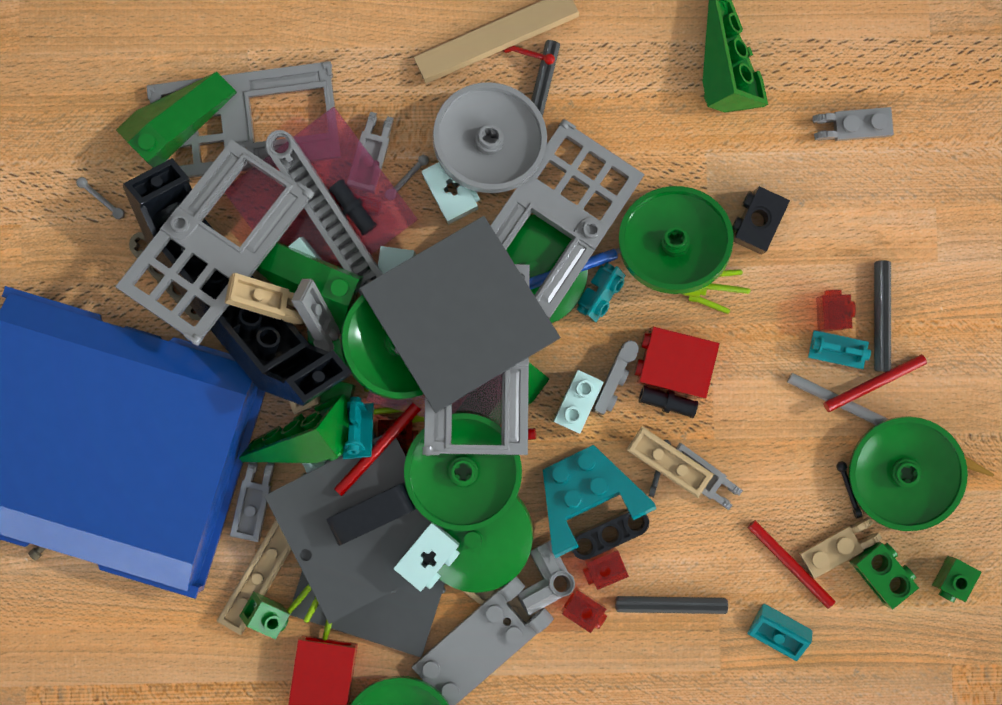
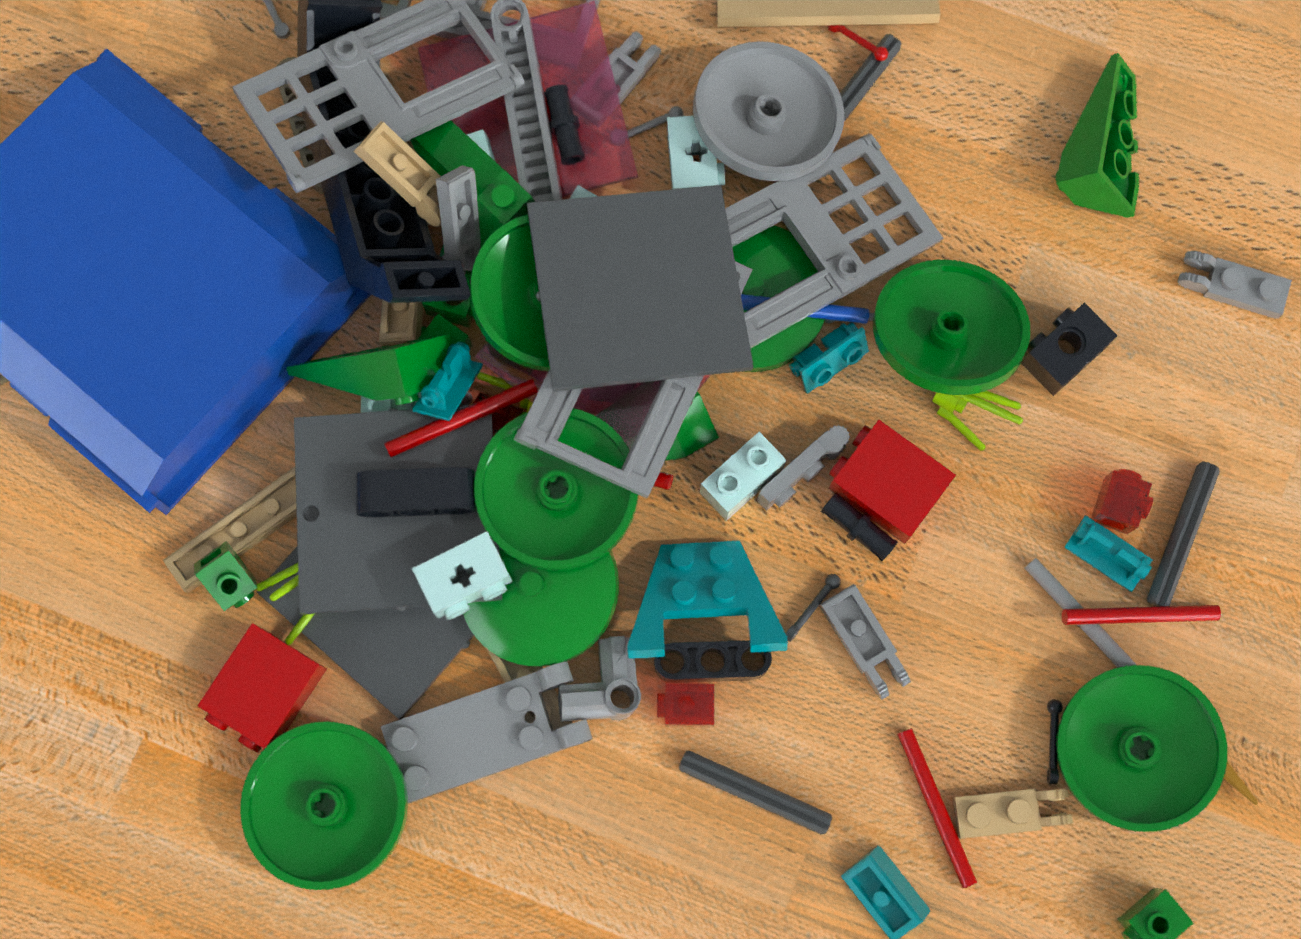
camera: 30 degrees right, 10 degrees down
(252, 504) = (274, 433): light grey hinge -> none
(584, 610) = (637, 748): clear red brick -> none
(669, 462) = (829, 600): tan tile -> none
(880, 578) = (1048, 876): green brick -> none

